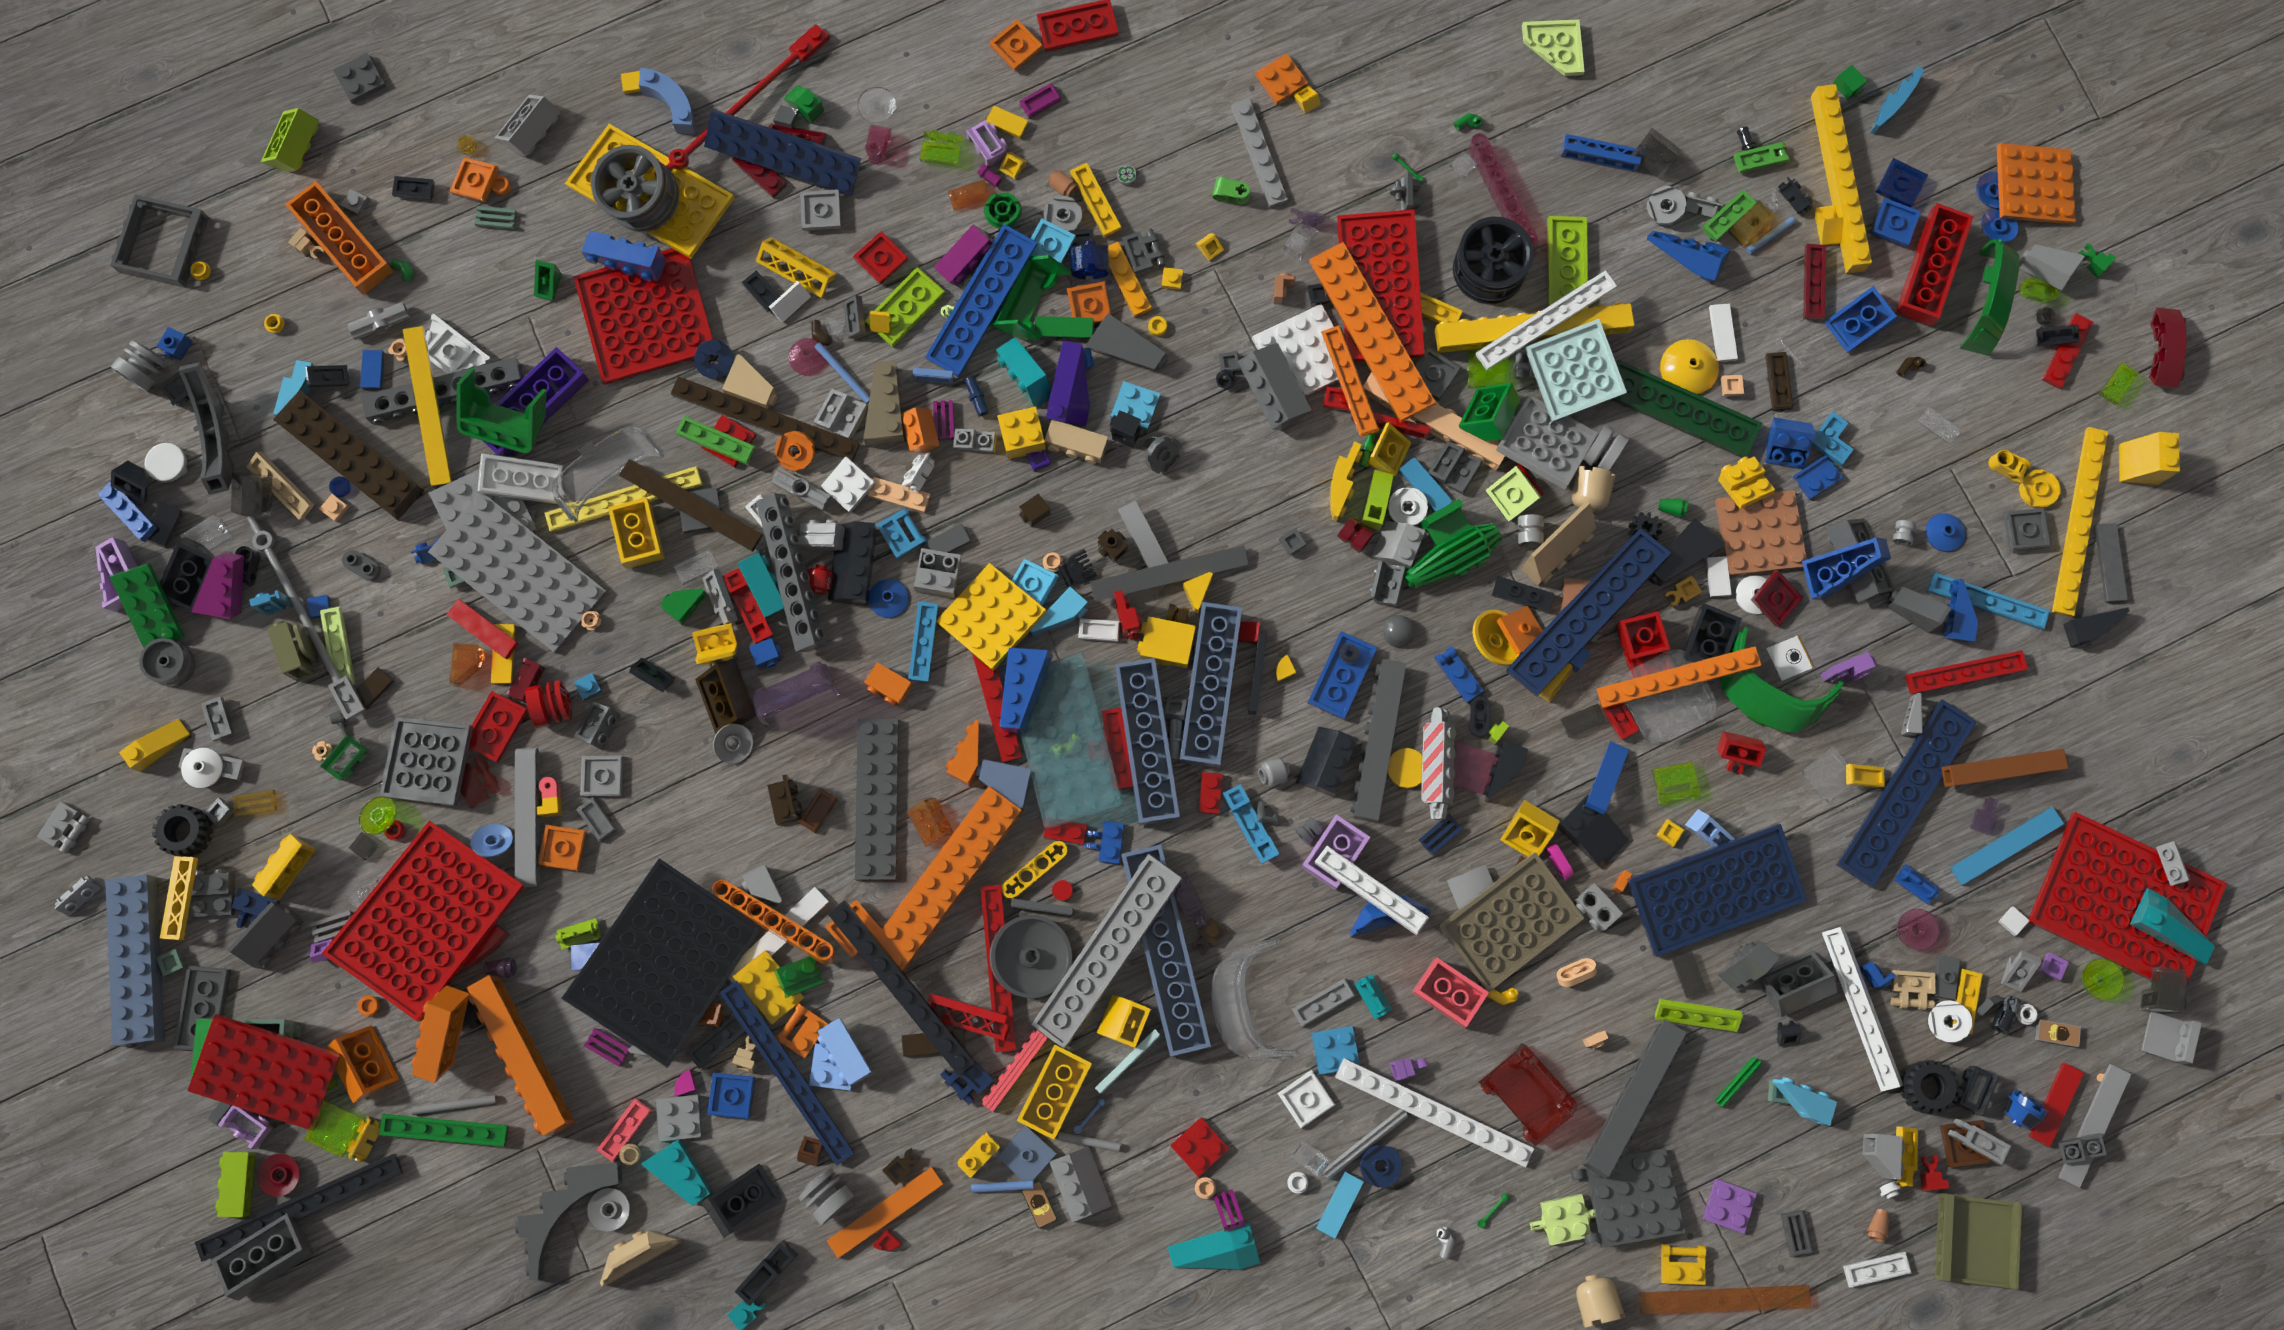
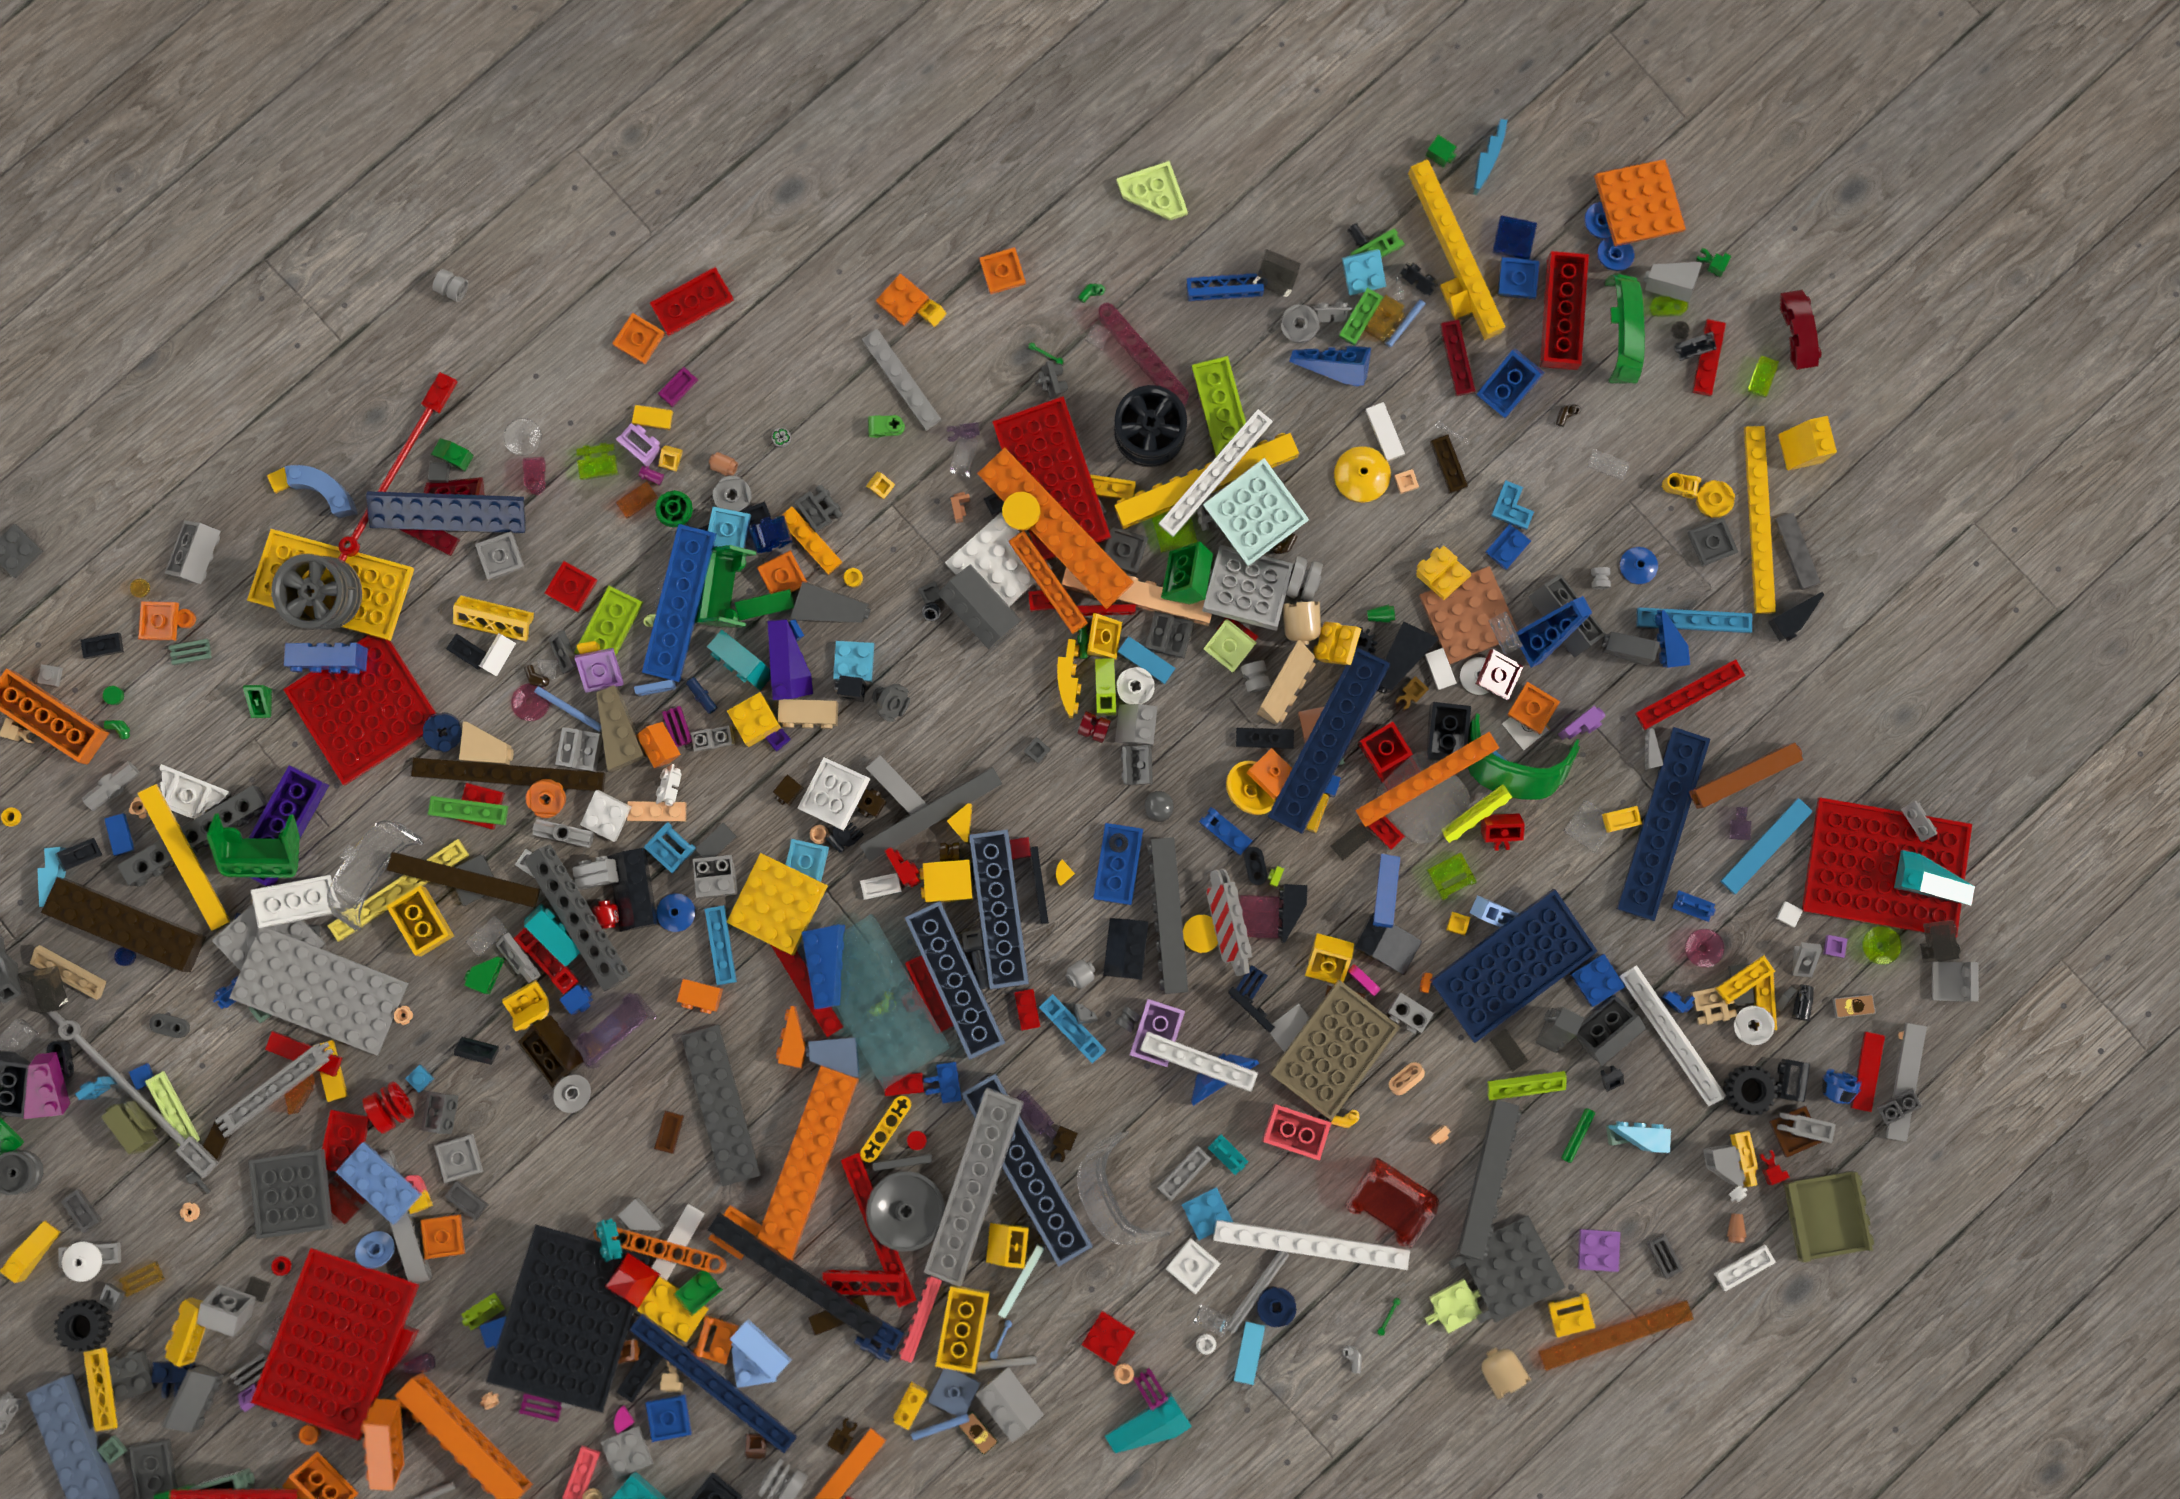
camera: 15 degrees left, 5 degrees up
(326, 855) = (226, 1310): none -> light grey brick
(334, 508) = (126, 978): light nougat plate -> none
(343, 757) = (212, 1213): green window -> none
(377, 815) = (255, 1255): clear neon green dish -> none
(408, 237) = (113, 695): none -> green tile
(443, 652) = (274, 1088): none -> light grey hinge
(516, 774) = (378, 1183): none -> medium blue plate
(527, 676) = (359, 1088): dark red hinge -> none
(558, 1024) = (489, 1400): none -> light nougat plate
(725, 888) = (605, 1233): none -> teal hinge
(737, 945) = (632, 1280): none -> red slope
(784, 801) = (636, 1132): dark brown bracket -> none
(883, 342) = (599, 670): none -> medium lavender plate
(929, 821) = (776, 1112): clear orange bracket -> none
(964, 255) = (651, 562): magenta wedge -> none
(1063, 611) = (843, 878): medium azure slope -> none
(1079, 525) = (833, 793): none -> white plate
(1095, 200) = (758, 471): yellow plate -> none
(1172, 279) = (853, 527): yellow plate -> none
(1343, 304) = (1021, 511): none -> yellow tile
(1387, 78) = (1002, 270): none -> orange plate
(1405, 1068) = (1273, 1212): medium lavender piece -> none
(1443, 863) = (1258, 1014): none -> black plate
(1456, 548) = (1190, 711): green piece -> none
(1594, 415) = (1285, 546): none -> dark brown arm
(1621, 521) = (1336, 643): none -> yellow plate
(1687, 411) = (1369, 518): dark green plate -> none
(1719, 726) = (1477, 812): none -> neon yellow plate
(1743, 173) = (1364, 271): none -> medium azure plate
(1789, 442) = (1473, 521): blue slope -> none
(1794, 558) = (1505, 633): none -> clear plate
(1798, 930) = (1597, 980): none -> blue plate
(1803, 640) = (1533, 708): none -> orange plate
(1952, 972) = (1745, 979): none -> yellow tile
(2032, 1014) = (1827, 997): white plate -> none

